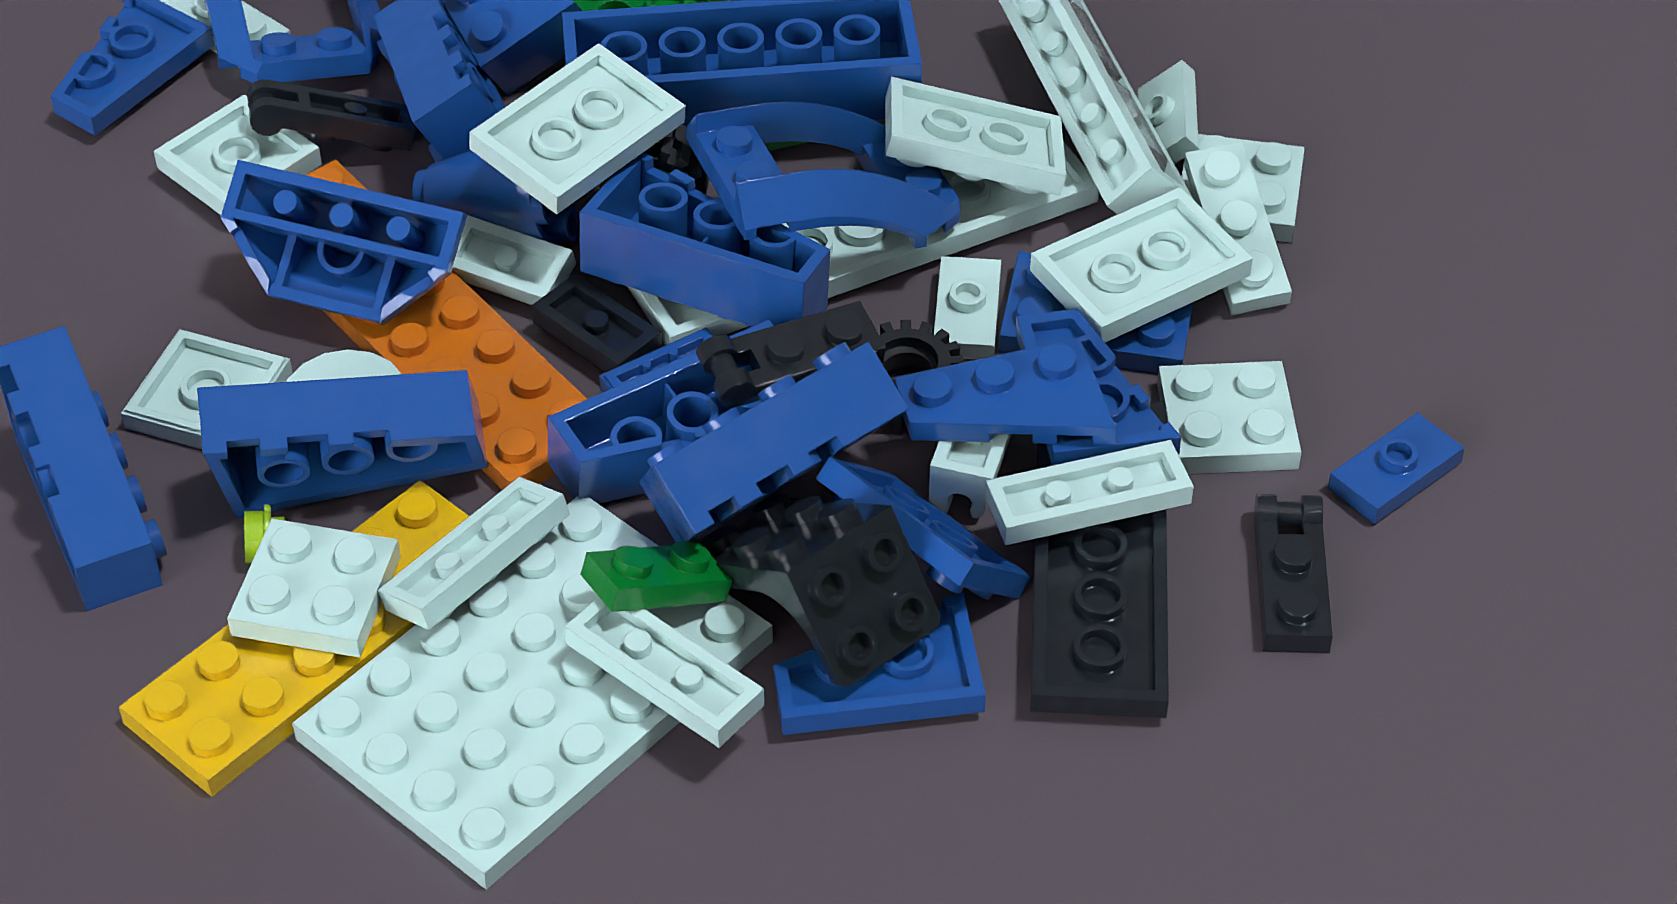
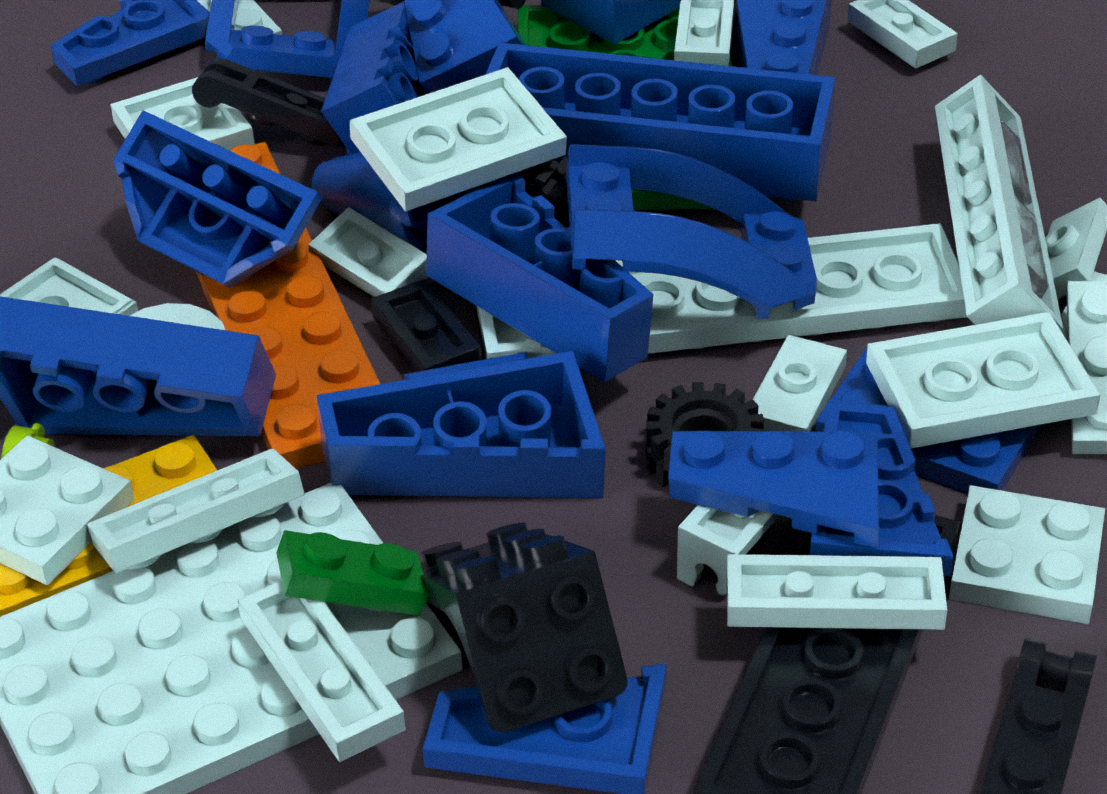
camera: 20 degrees right, 5 degrees down
(771, 443) = (516, 466): blue wedge -> none
(782, 351) = (576, 387): black plate -> none
(953, 551) = (651, 594): blue plate -> none
(974, 137) = (852, 225): light aqua plate -> none

